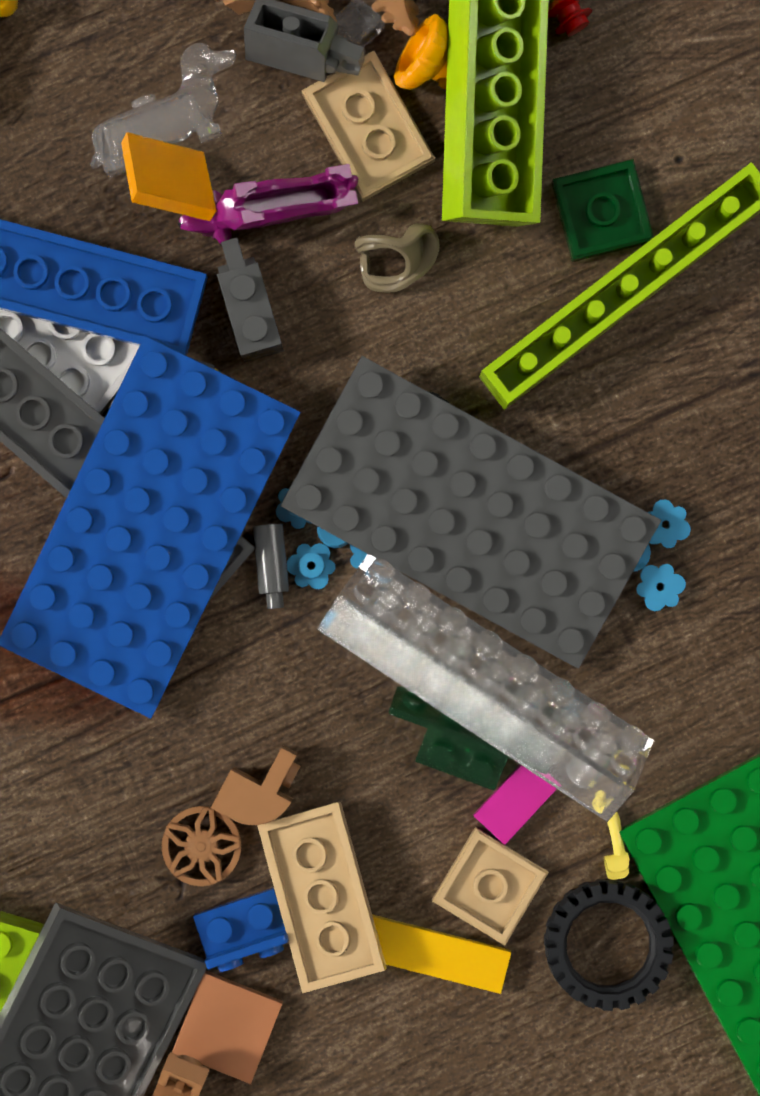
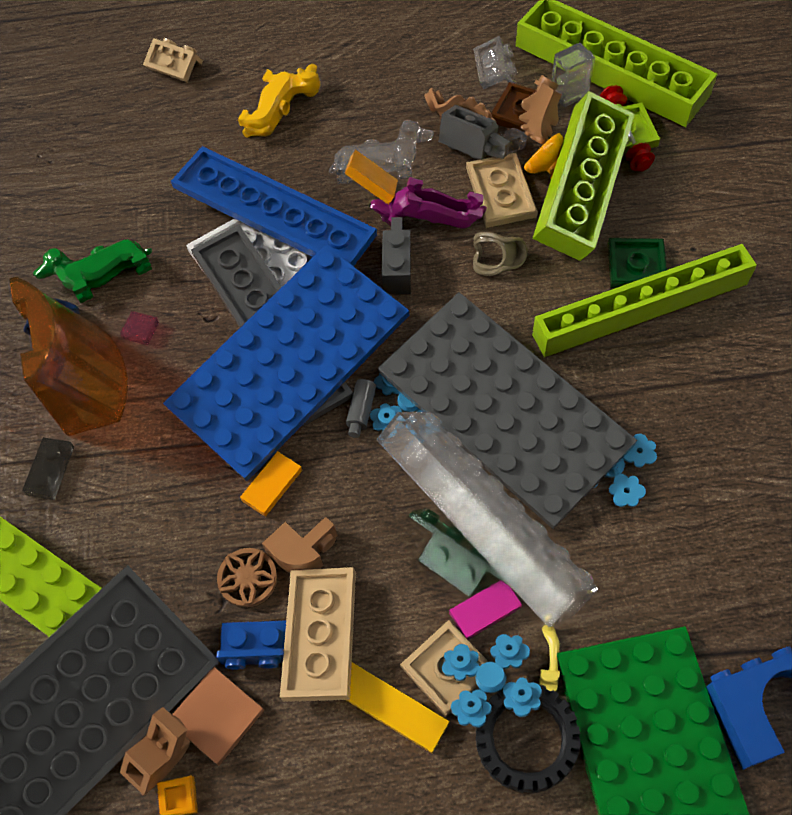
camera: 25 degrees right, 25 degrees down
(186, 709) = (271, 483): none -> light orange tile
(550, 895) = (490, 679): none -> dark azure plant

